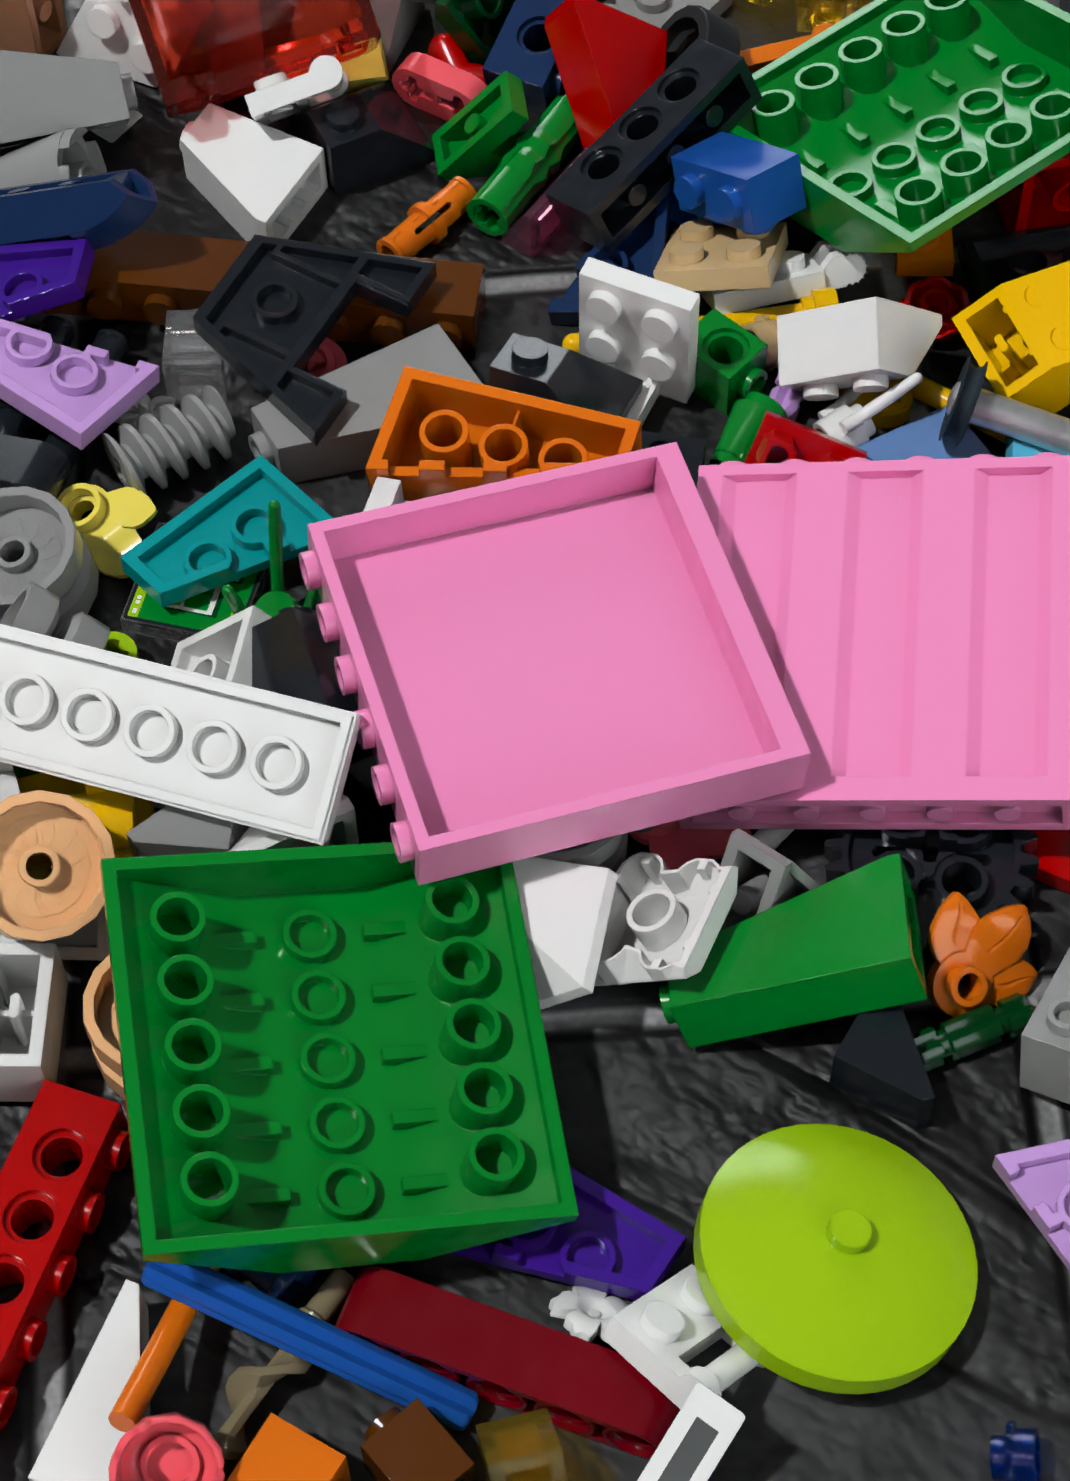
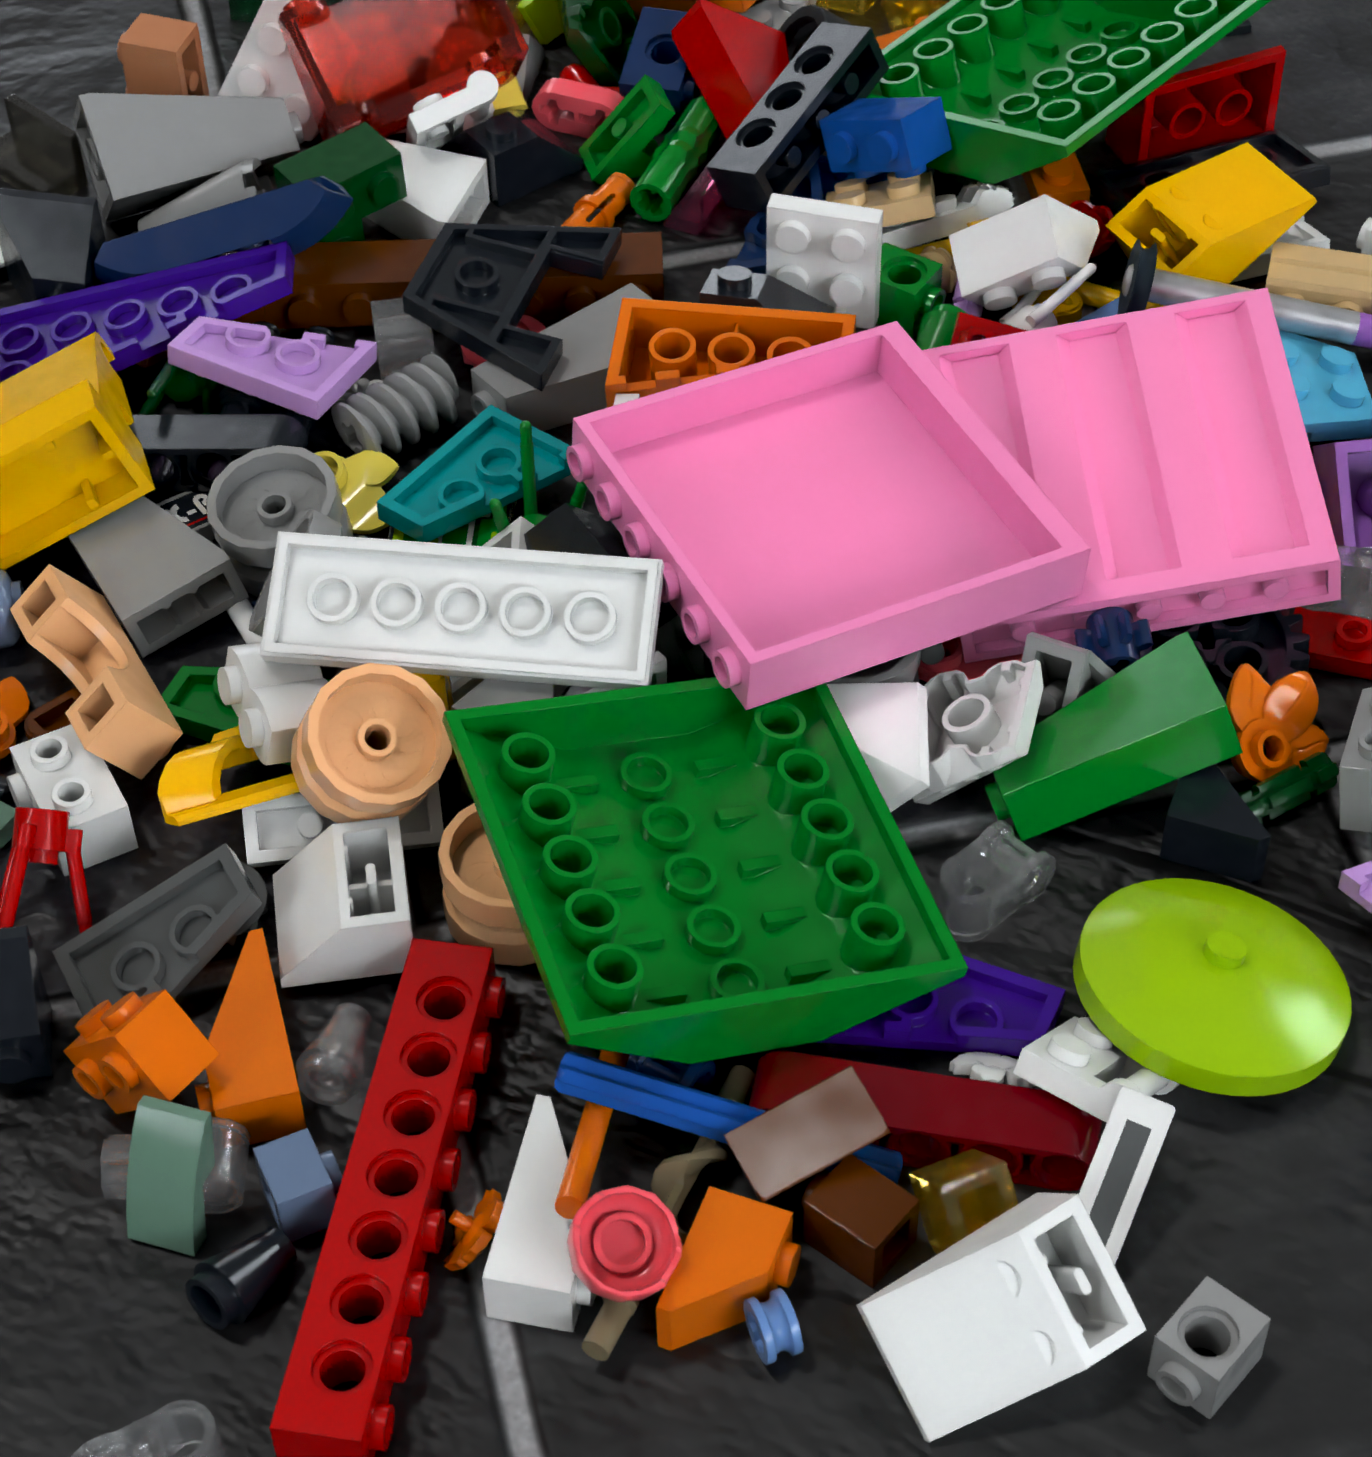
camera: 10 degrees left, 10 degrees down
(41, 1411) = (475, 1231): none -> orange plant
(176, 154) = (358, 162): none -> dark green brick
(378, 1374) = (806, 1134): none -> slope
(652, 1085) = (990, 882): none -> clear piece
(828, 843) = (1115, 637): none -> dark blue gear

